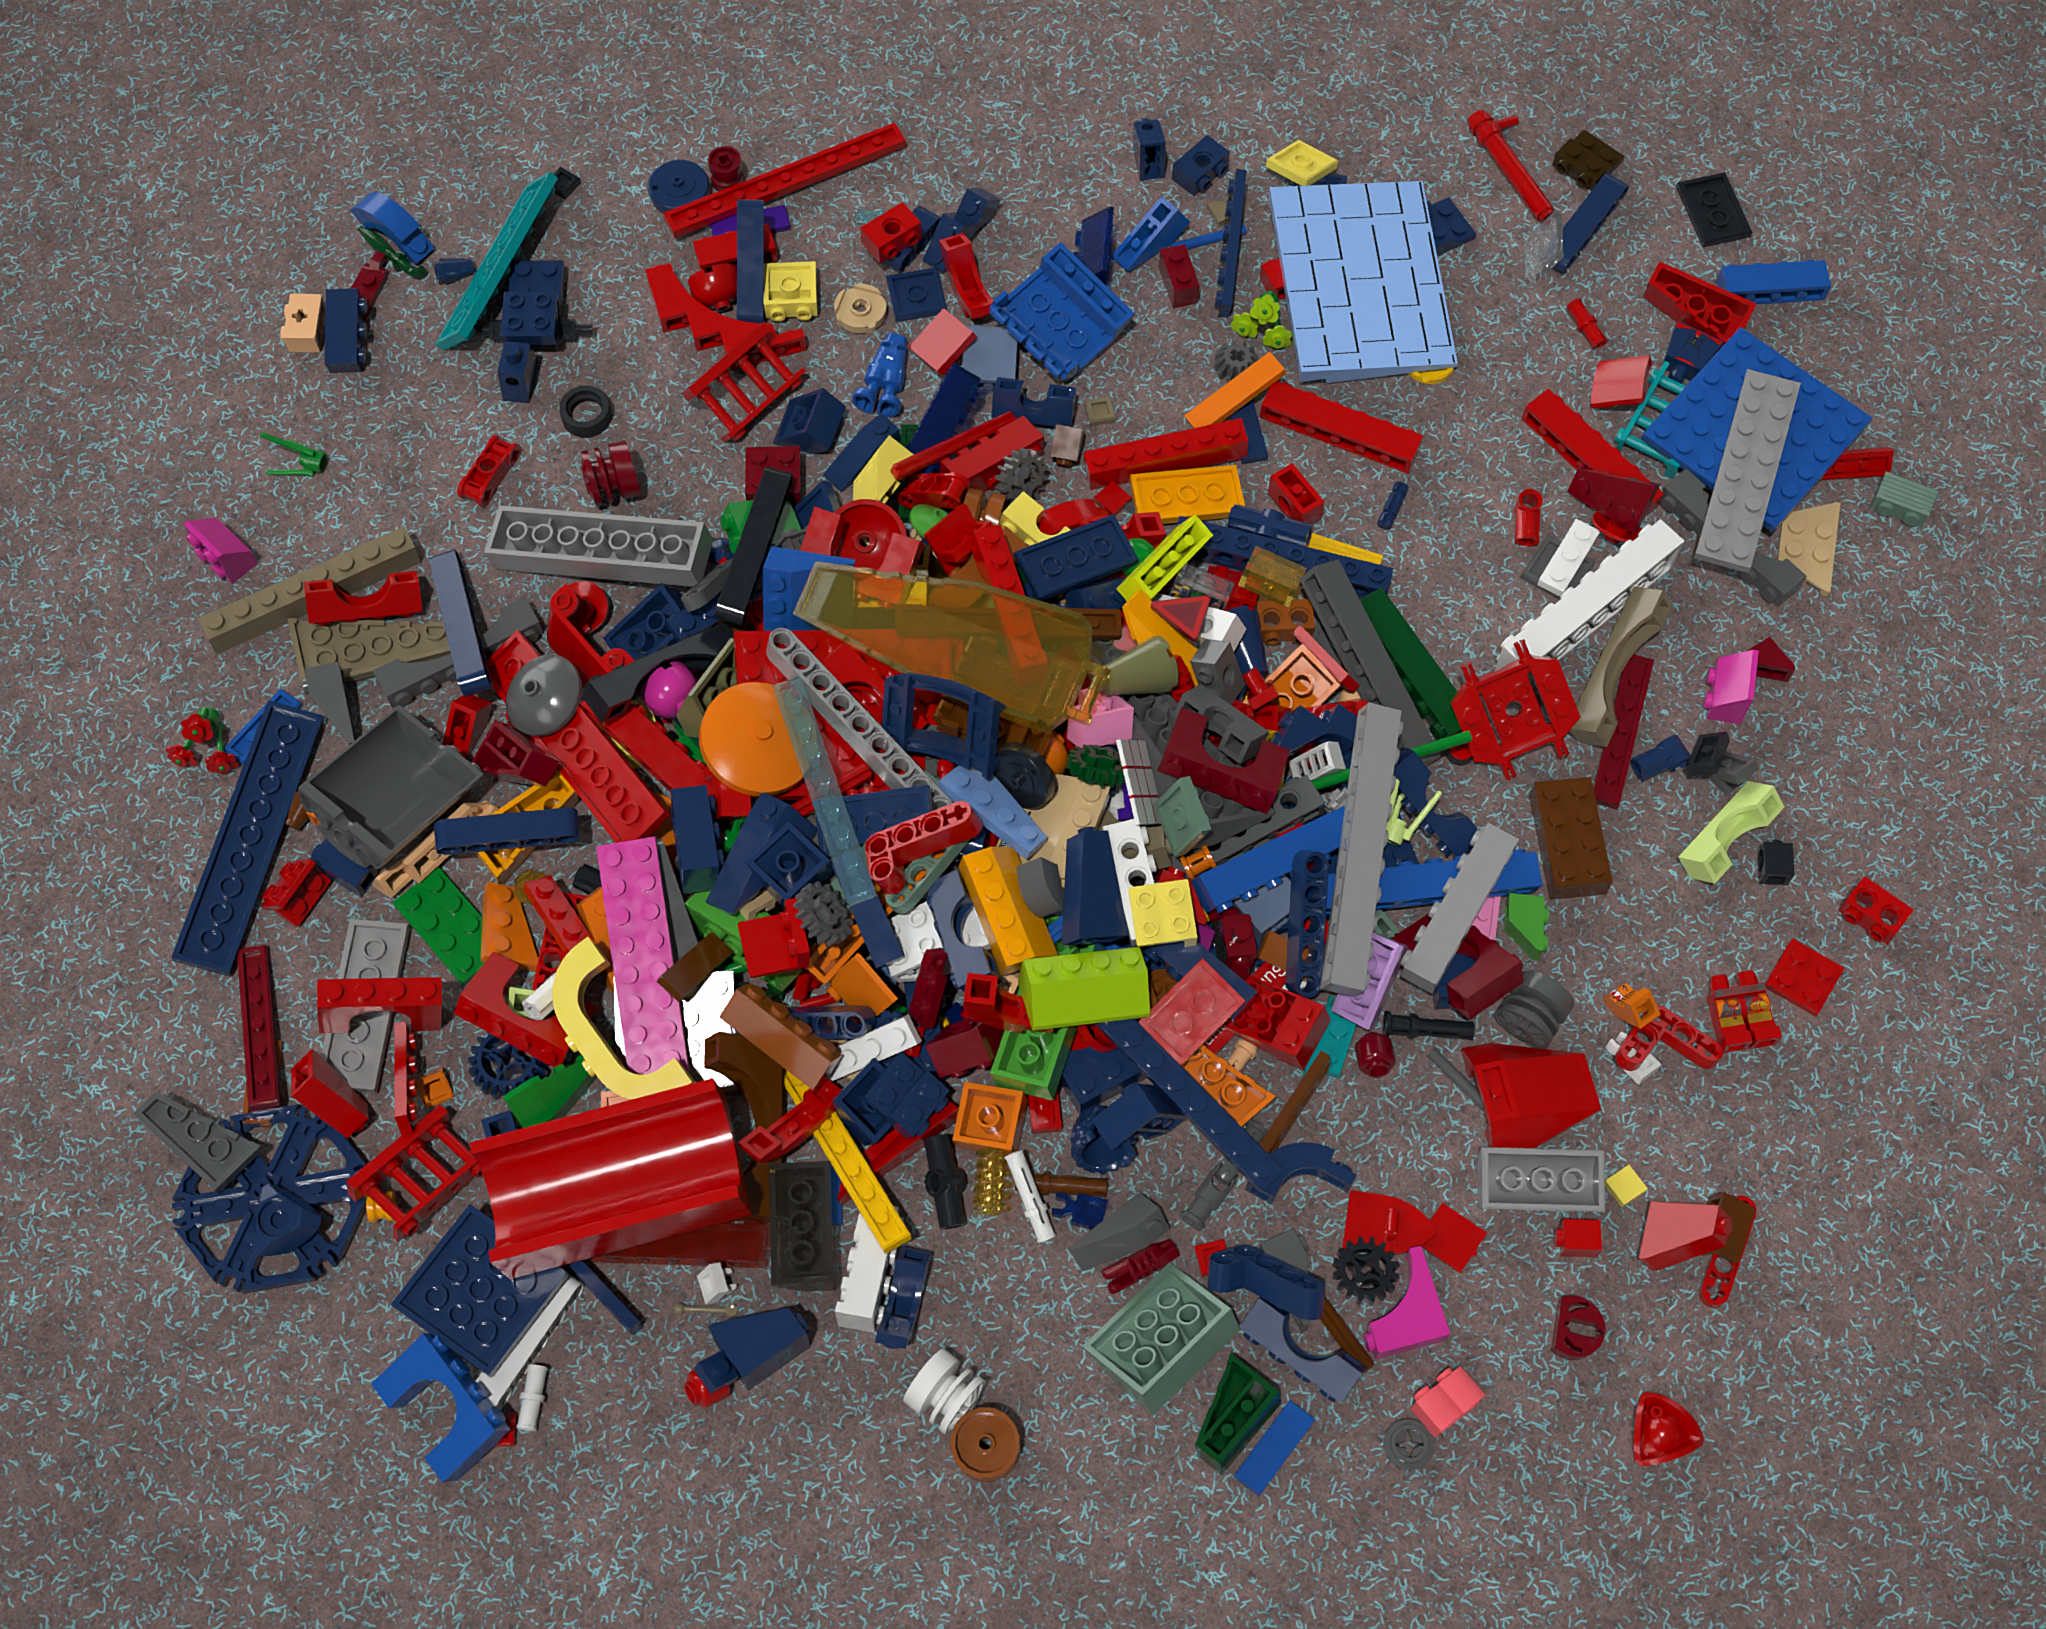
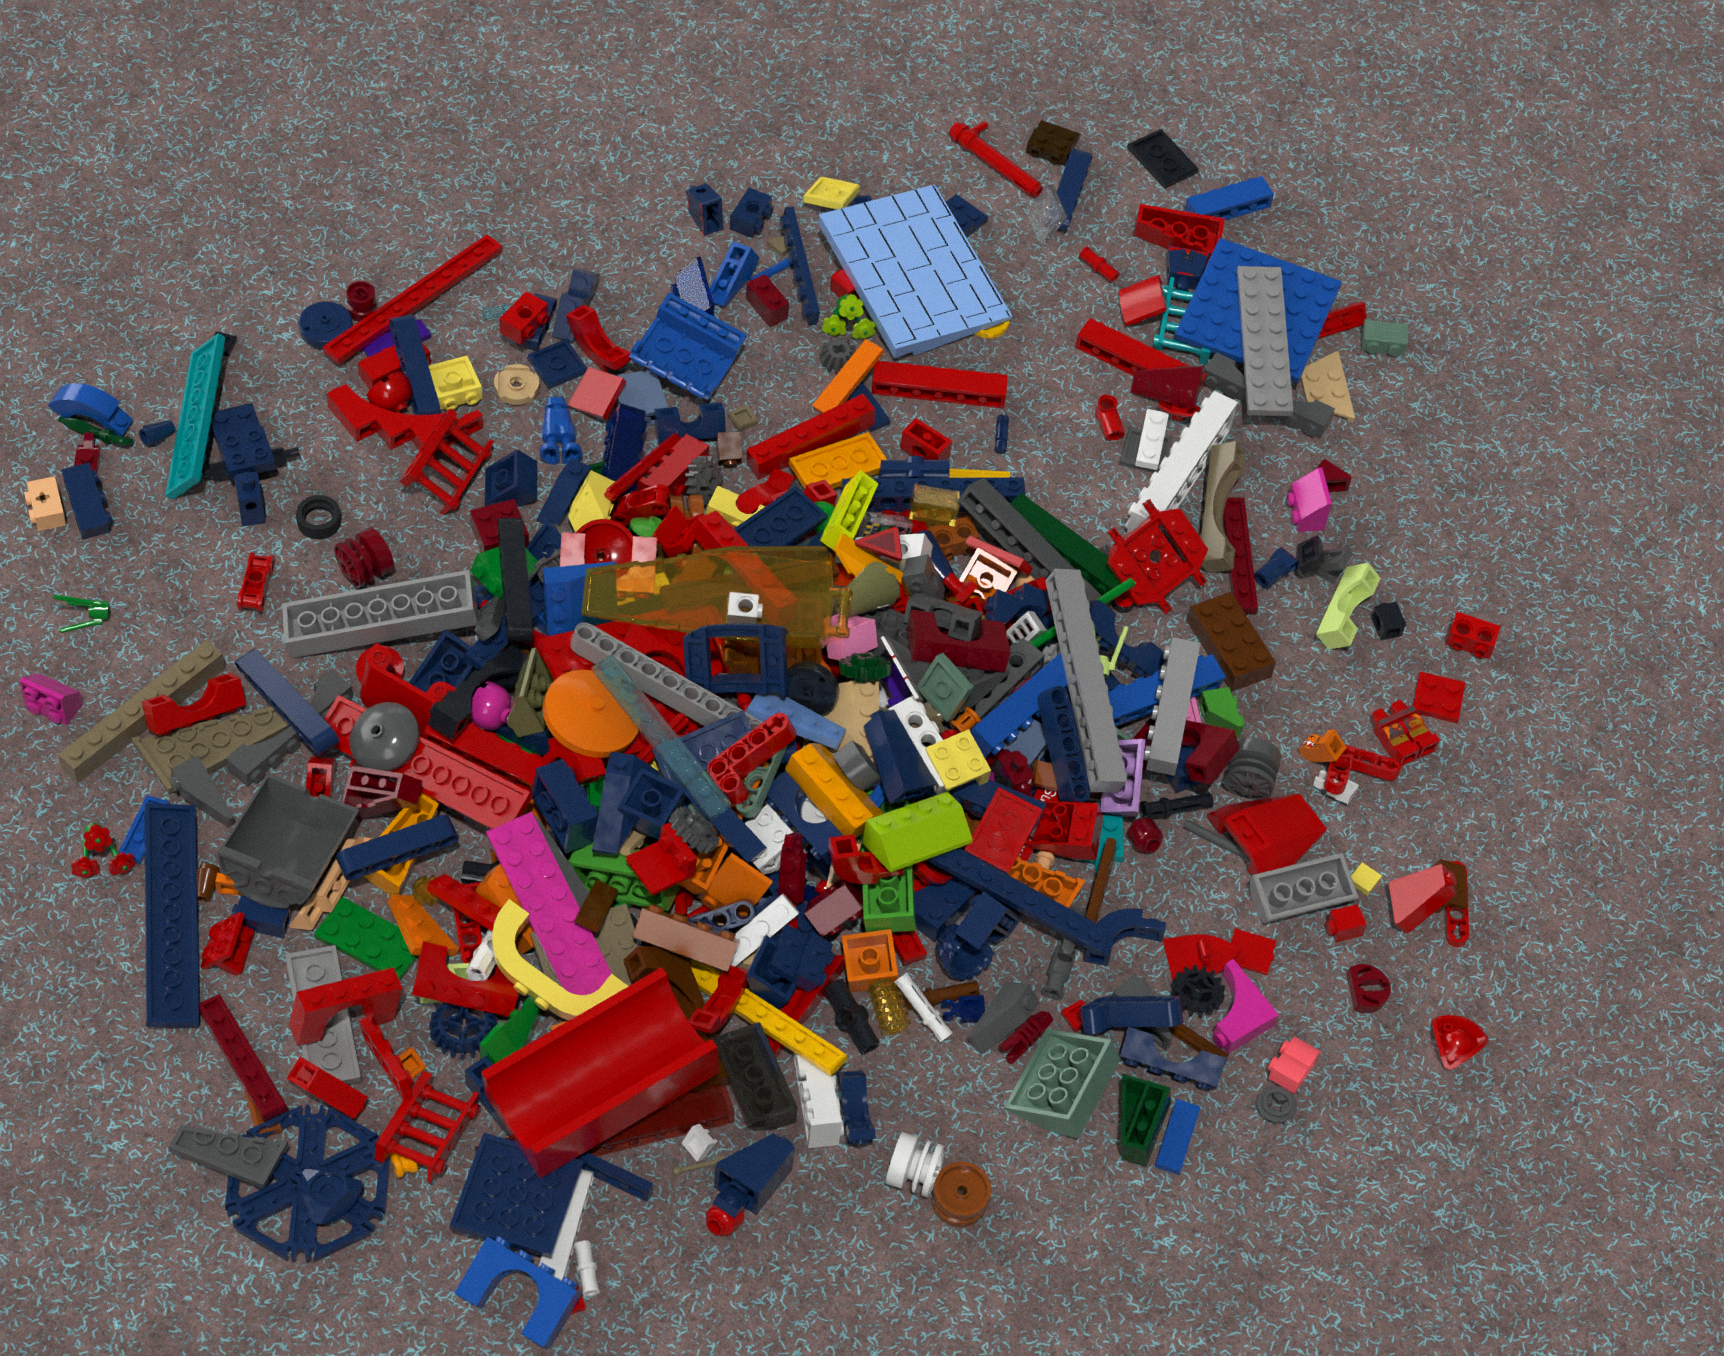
camera: 25 degrees left, 10 degrees down
(966, 650) = (738, 600): none -> white brick

